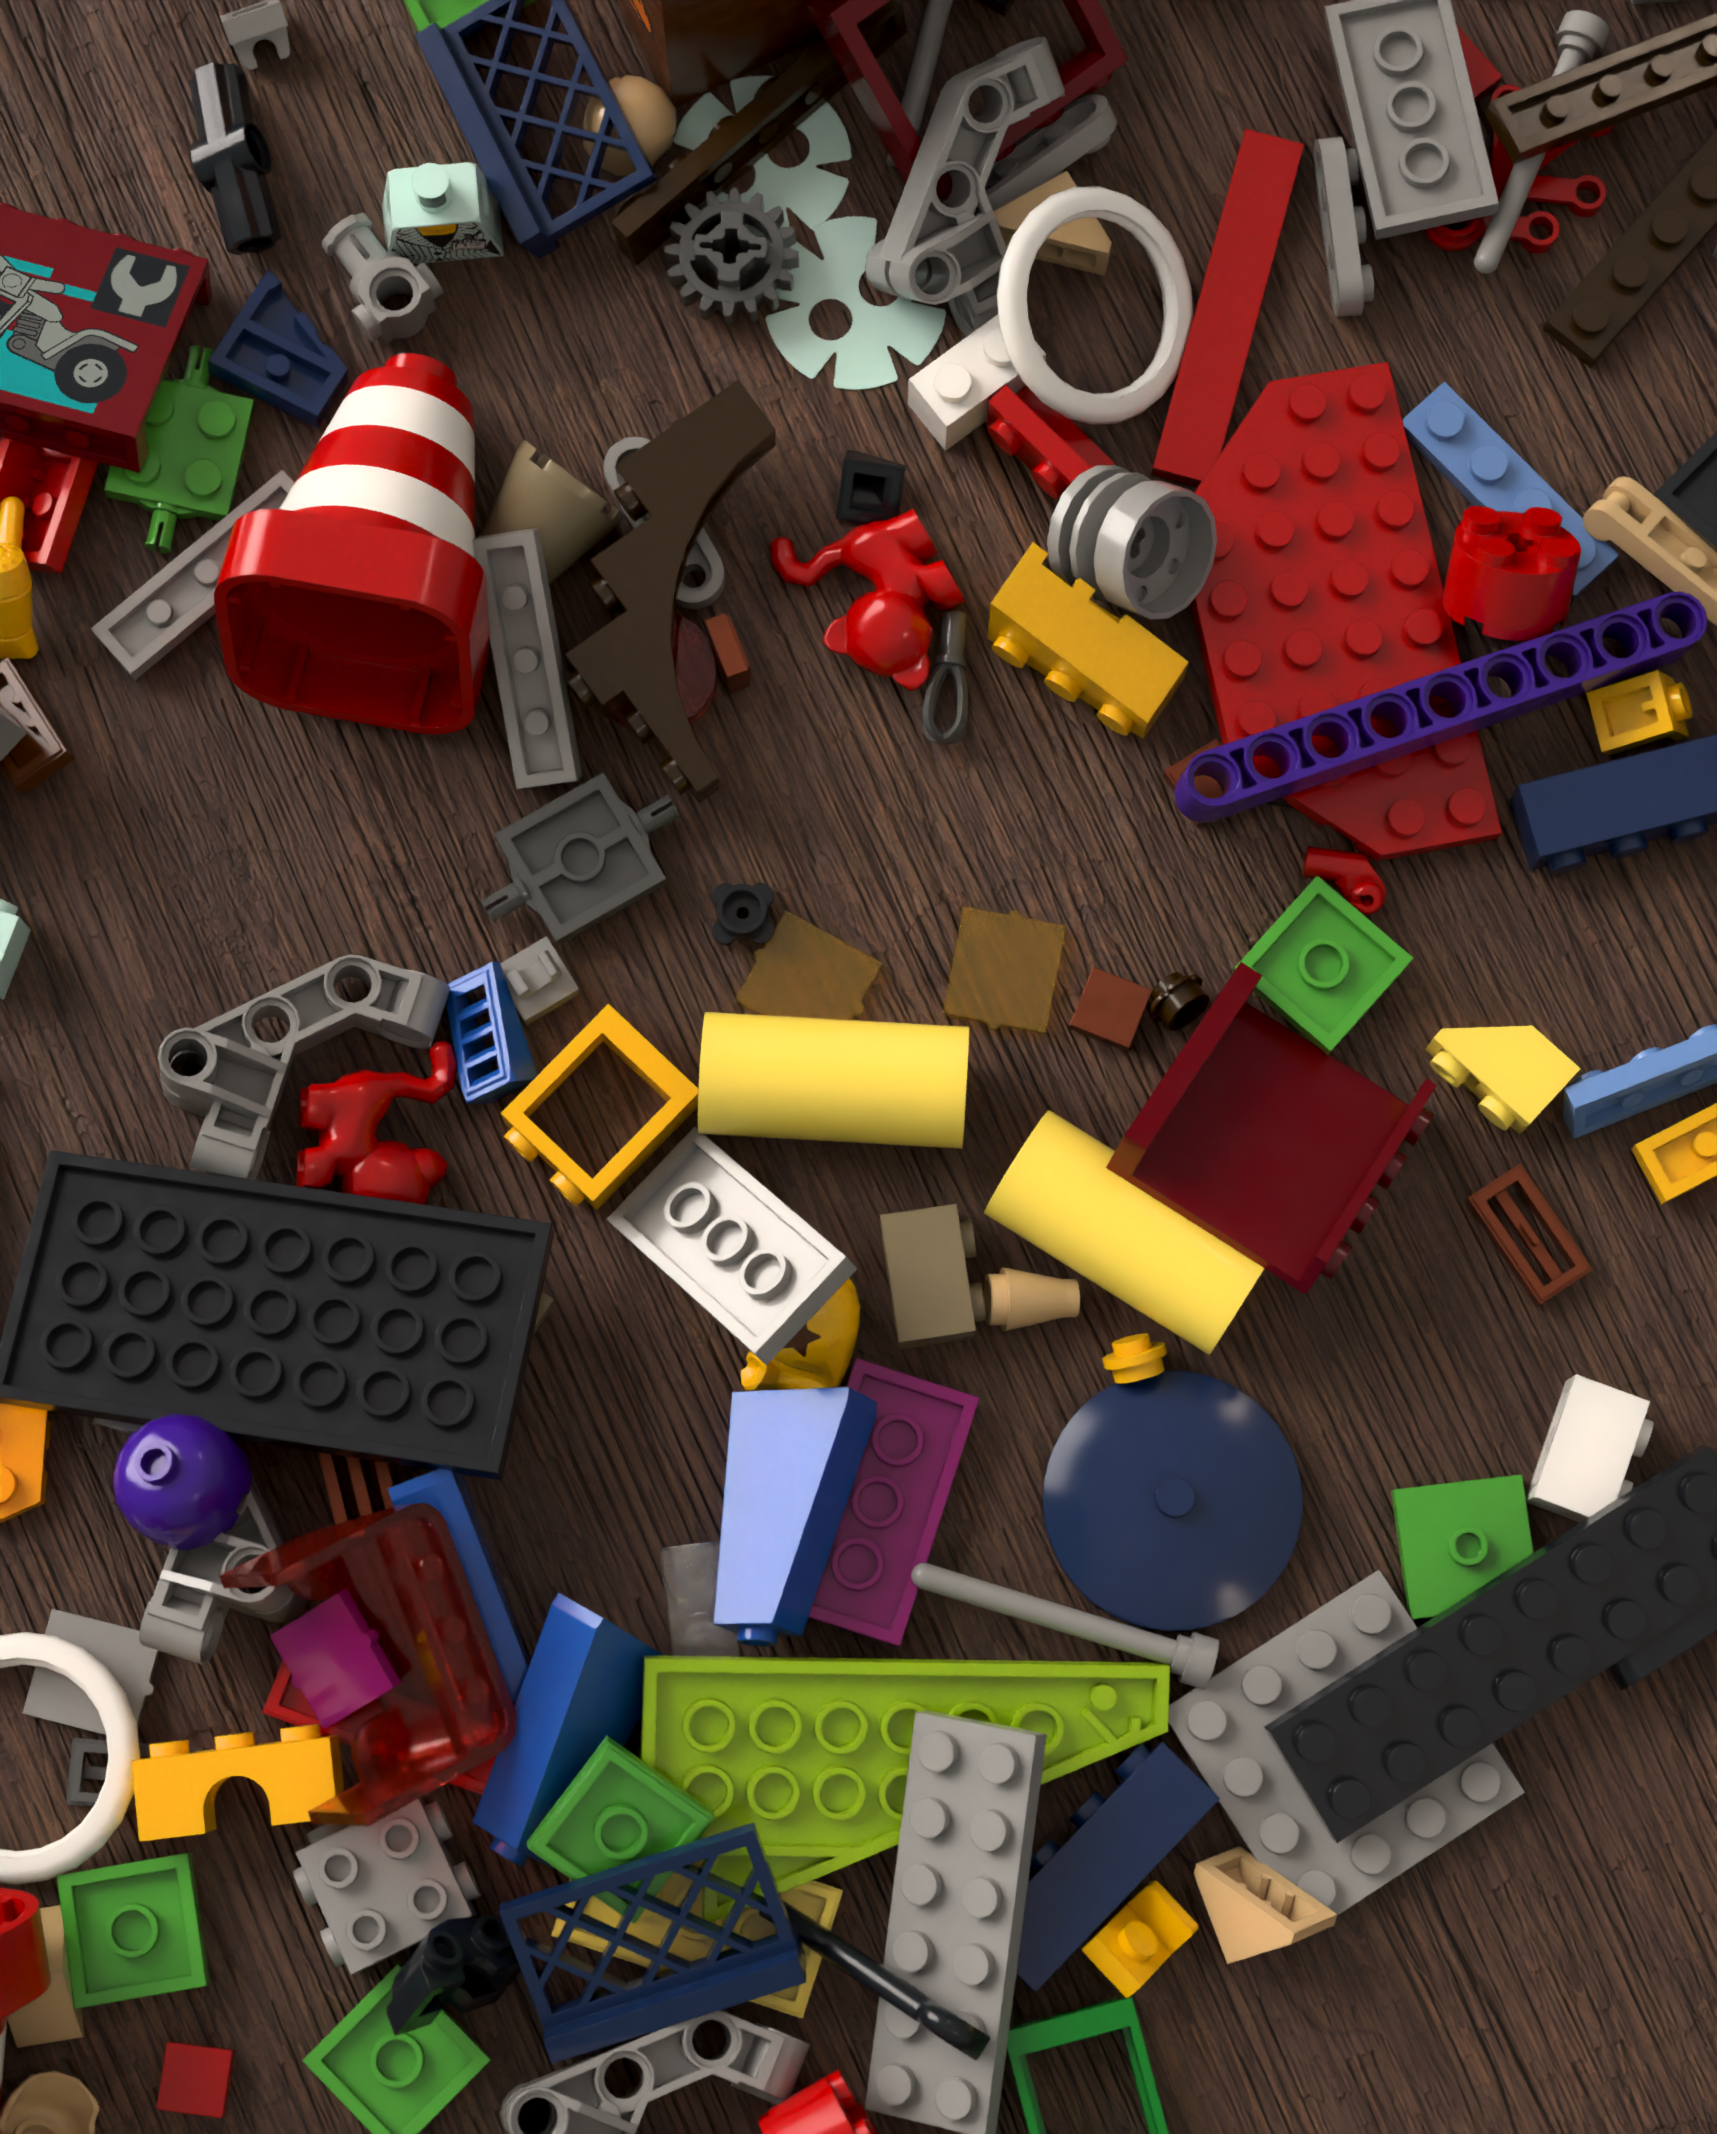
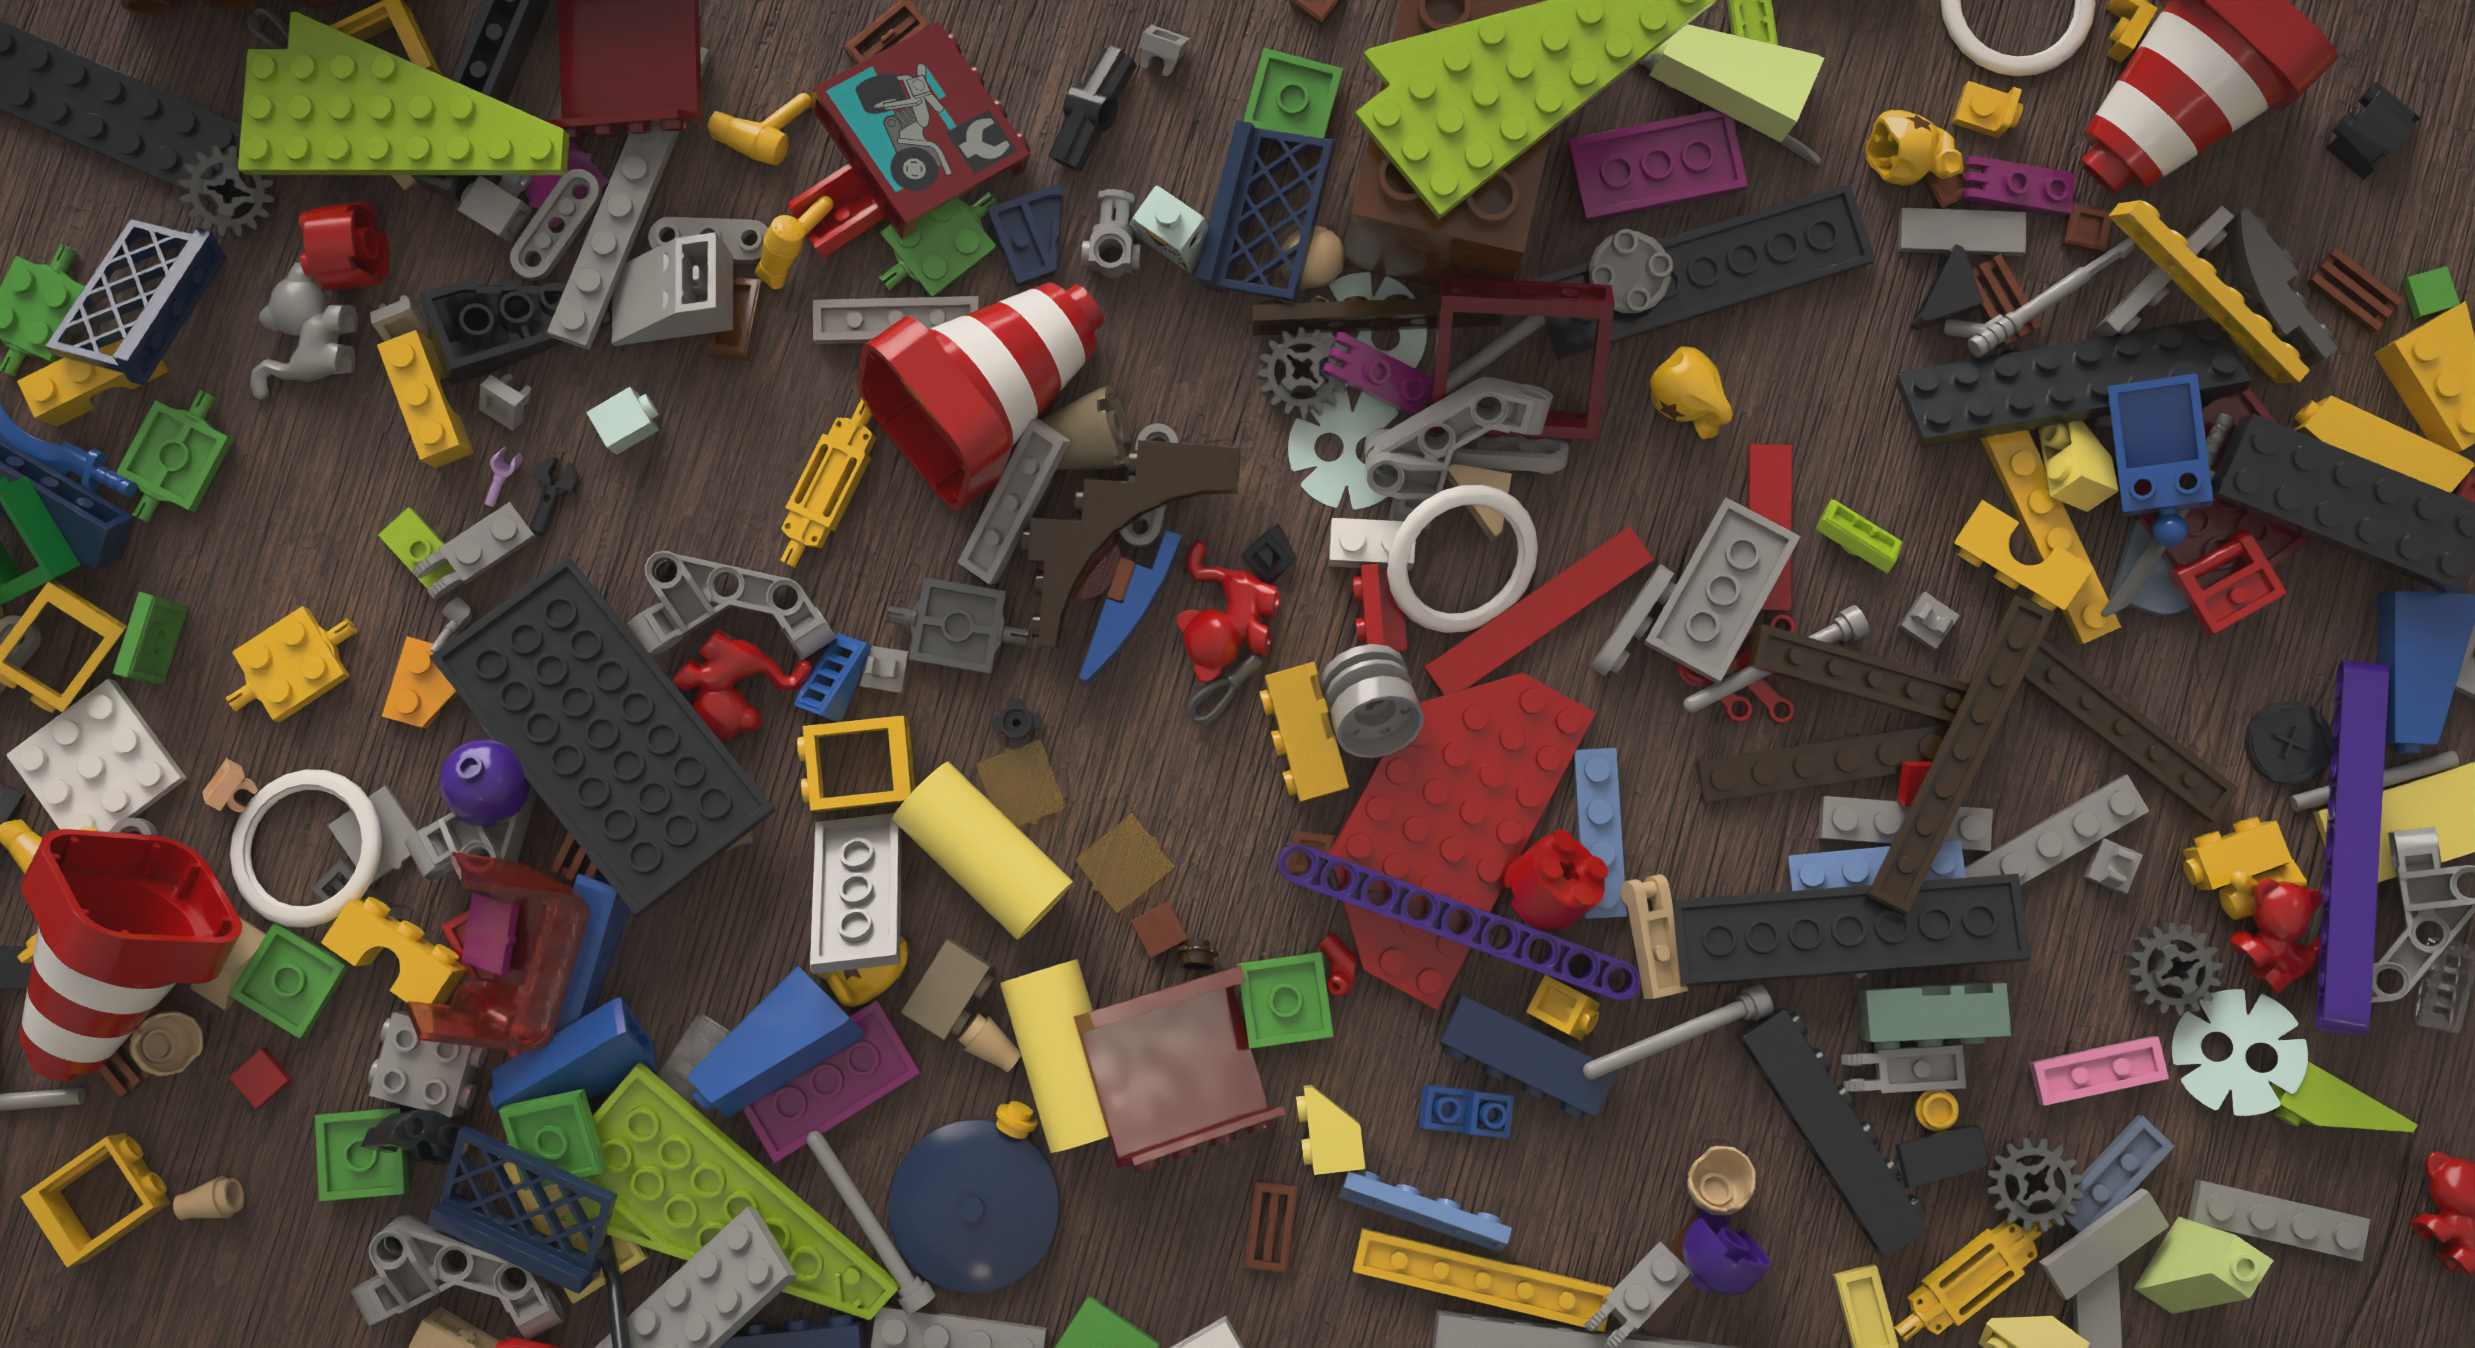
camera: 45 degrees right, 5 degrees up
(301, 885) = (835, 458): none -> yellow piece
(763, 692) = (1121, 620): none -> blue slope
(821, 187) = (1379, 375): none -> magenta hinge
(1631, 920) = (1466, 1111): none -> blue slope

